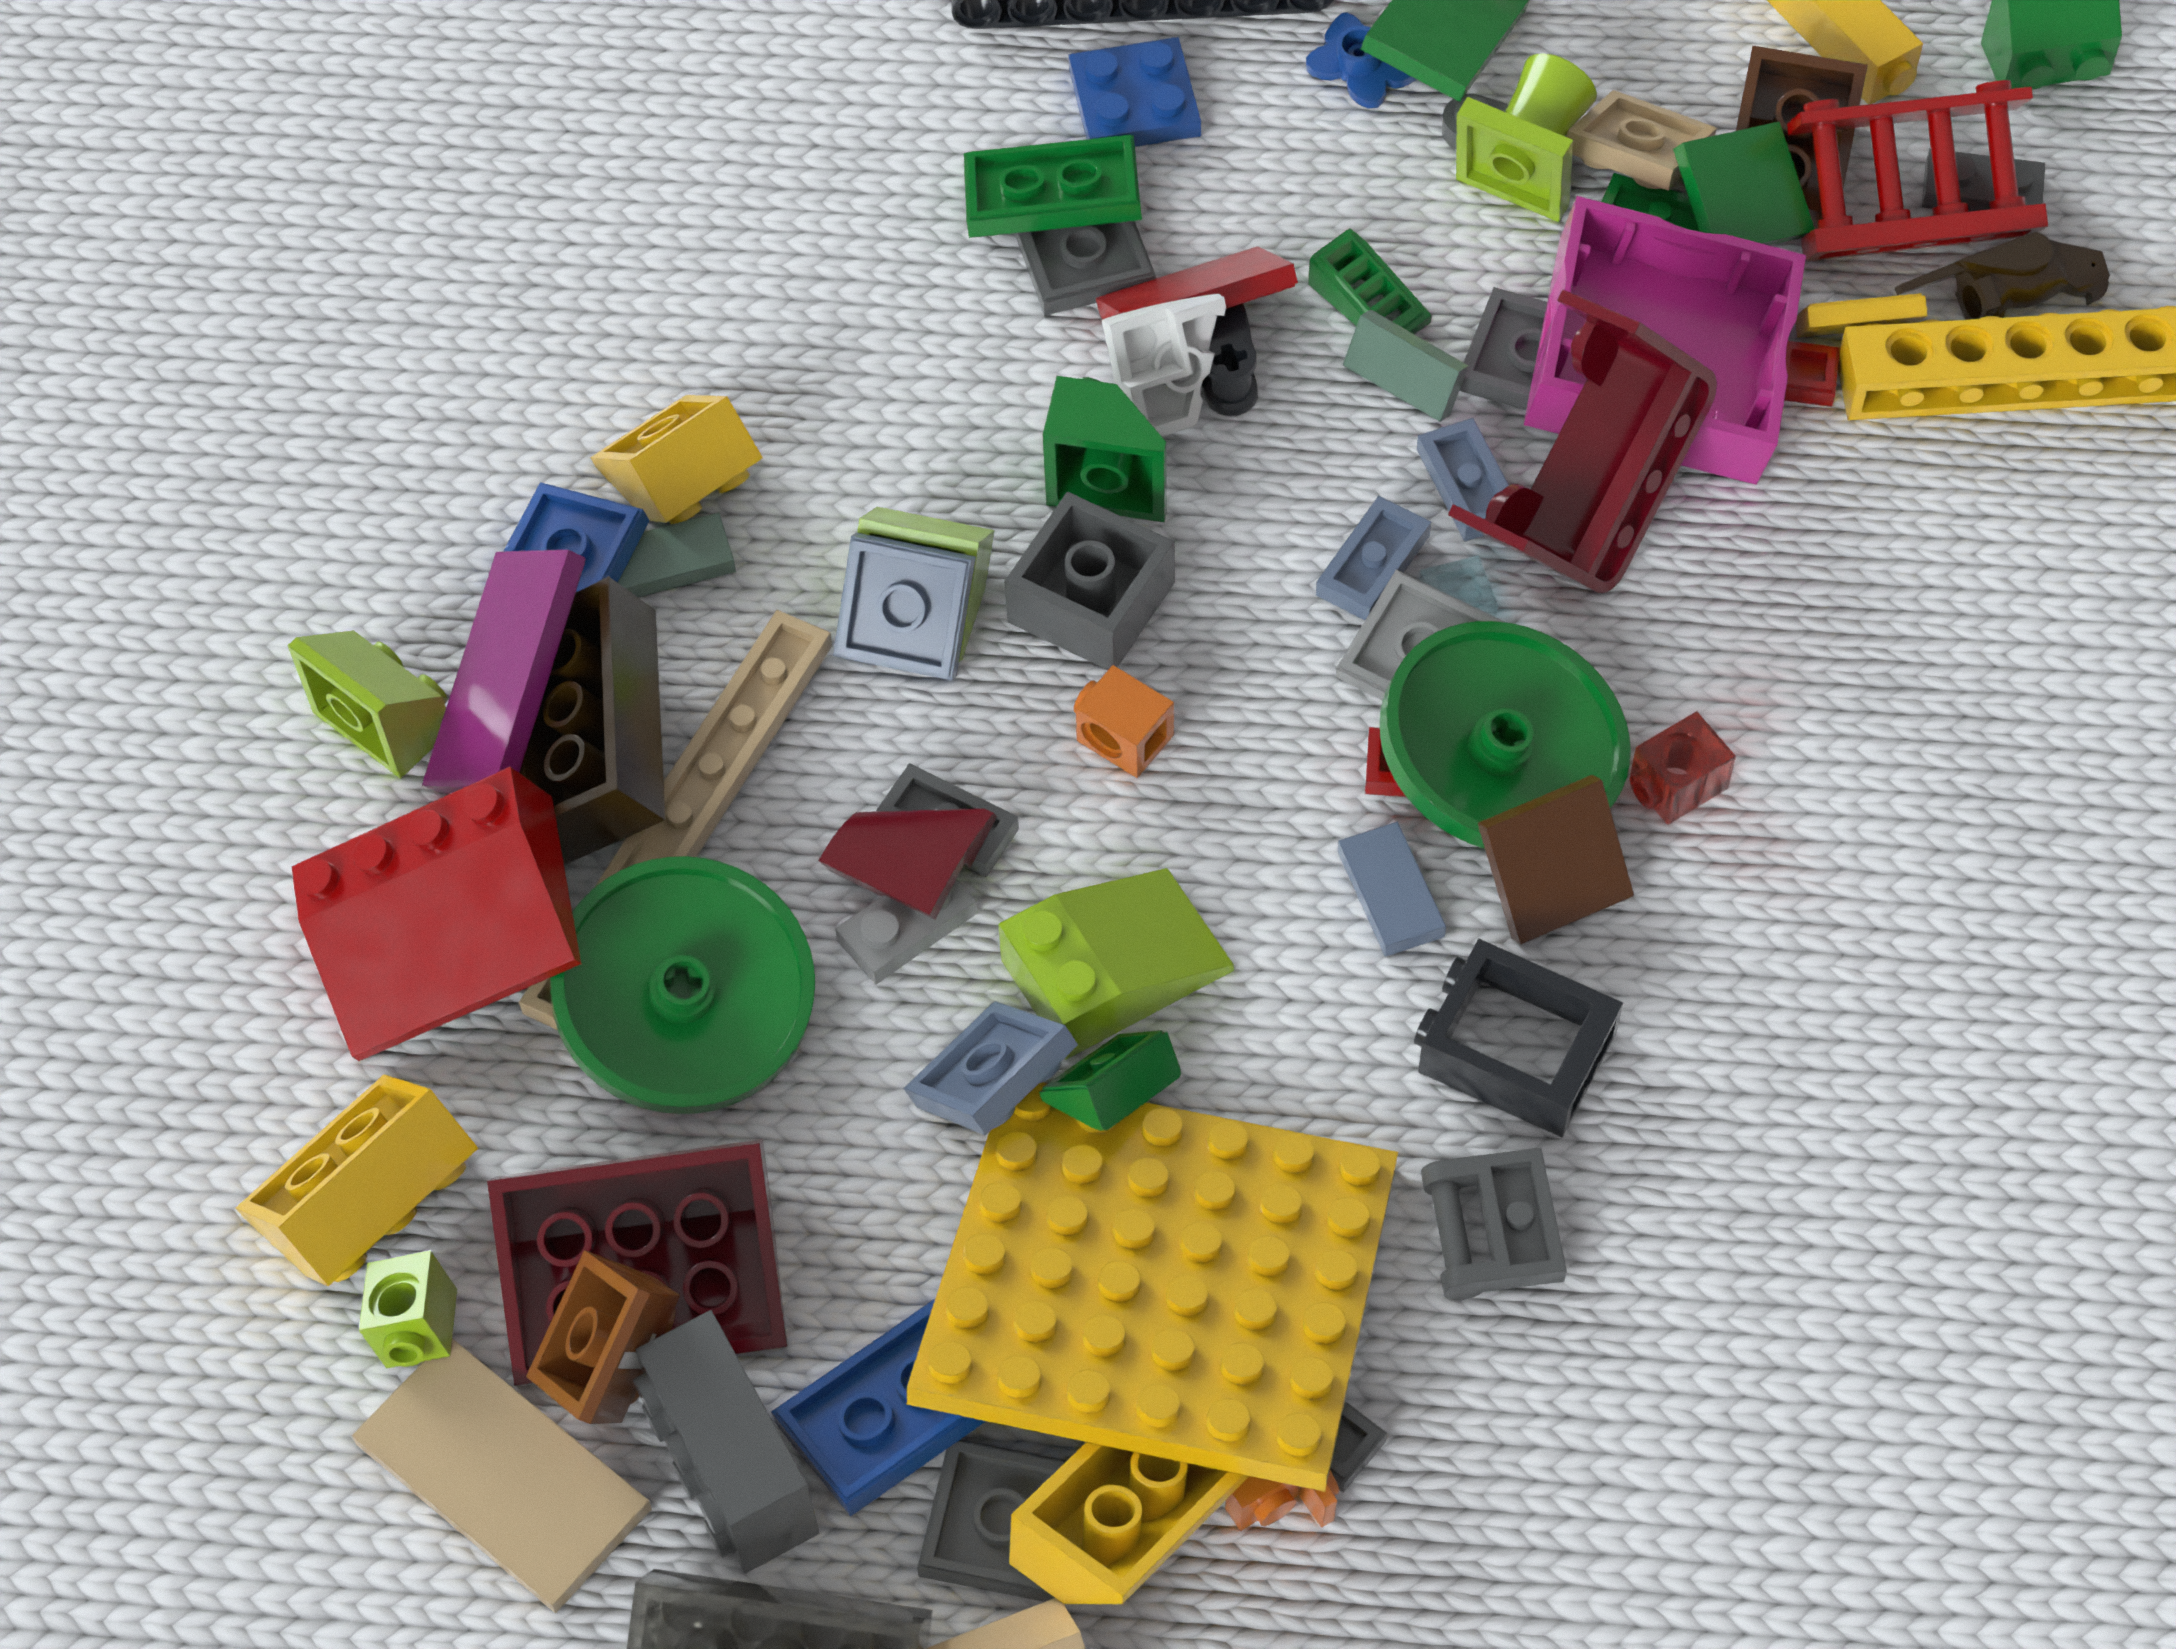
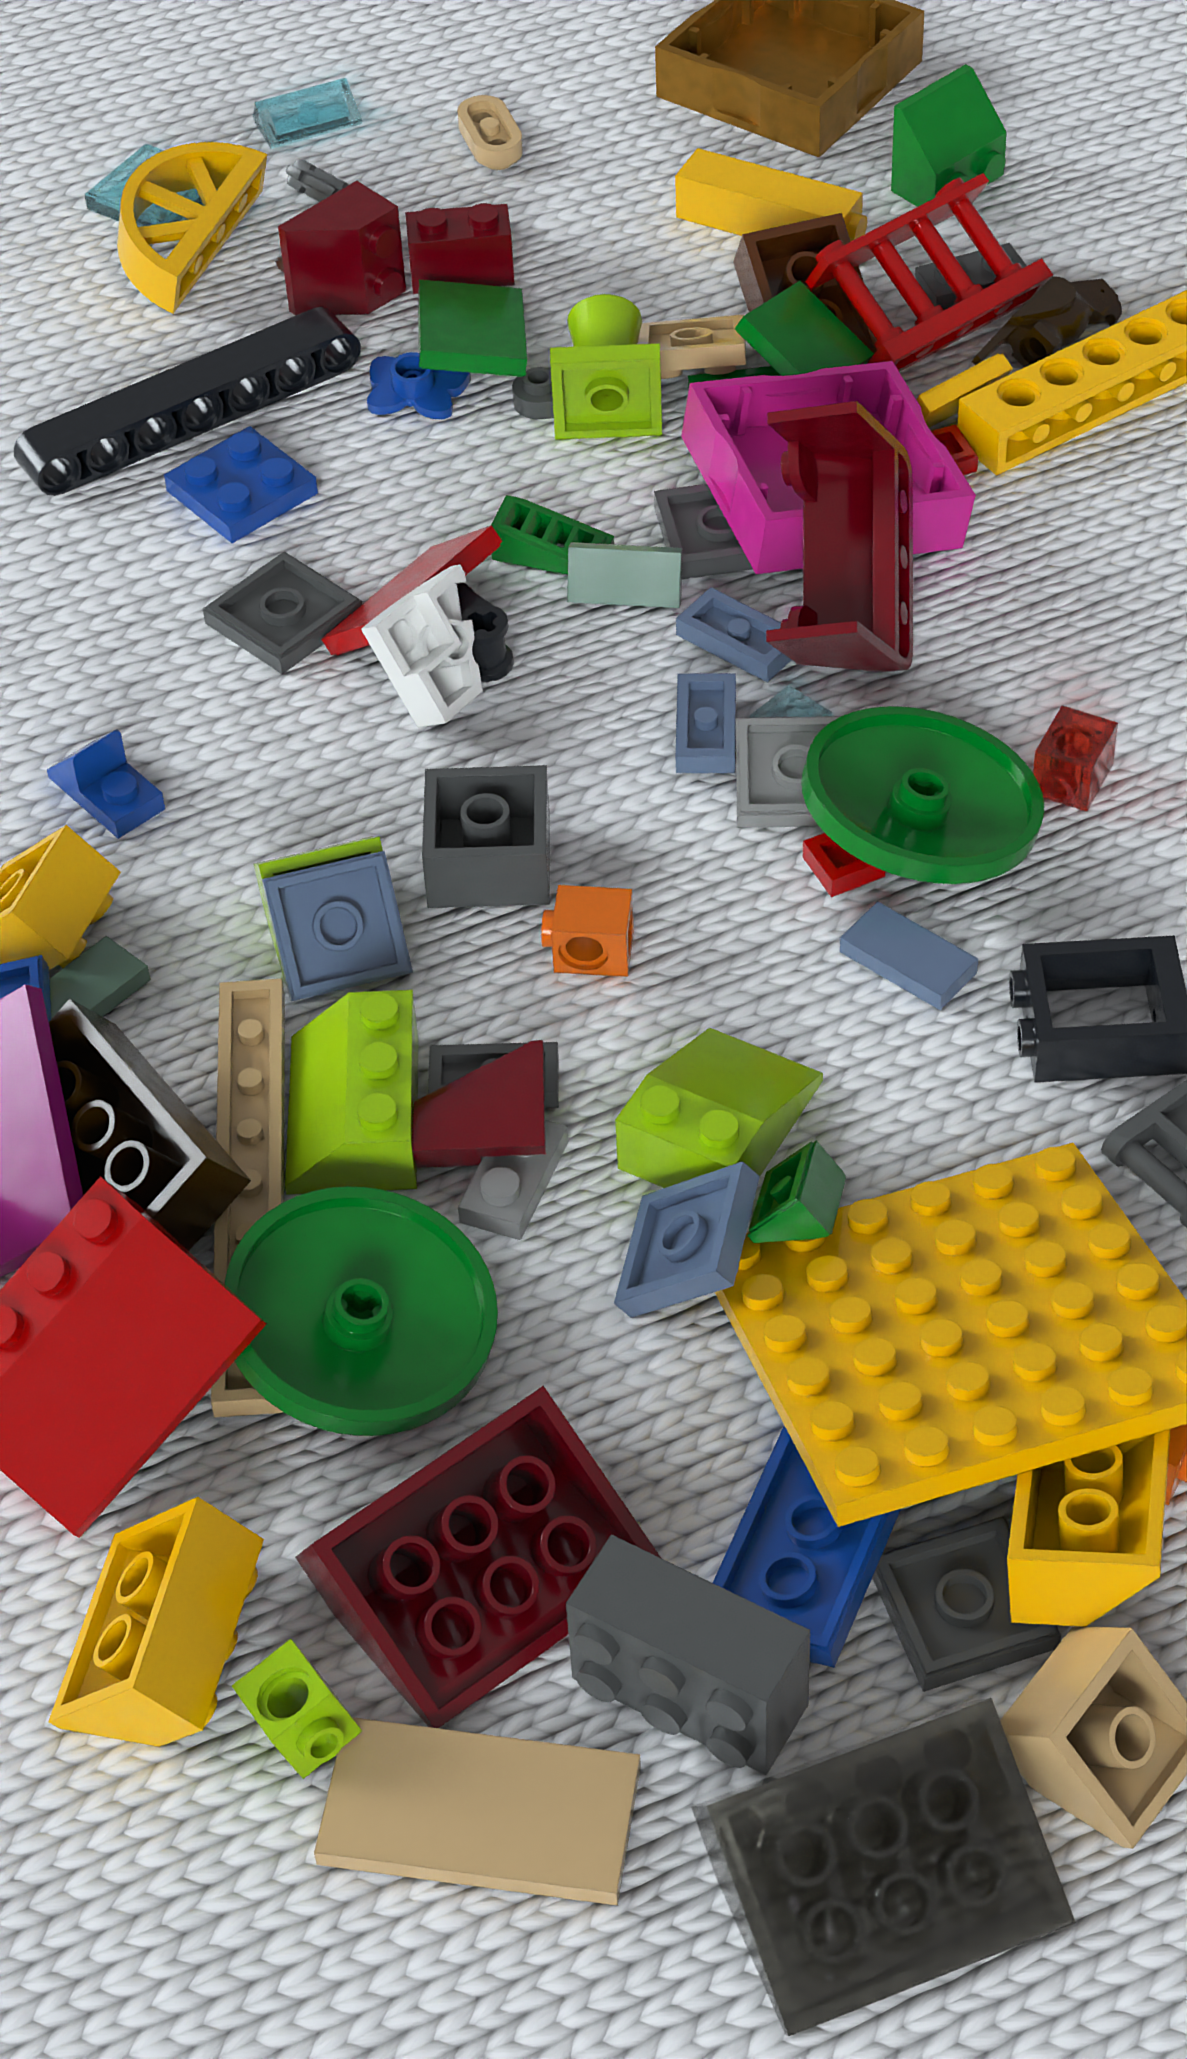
camera: 30 degrees left, 10 degrees down
(593, 1337) = (509, 1623): dark orange slope -> none
(818, 361) = (108, 785): none -> blue slope
(824, 767) = (354, 1095): none -> lime slope
(1051, 186) = (223, 571): green tile -> none
(1103, 450) = (423, 722): green slope -> none
(1556, 859) = (1035, 861): reddish brown tile -> none

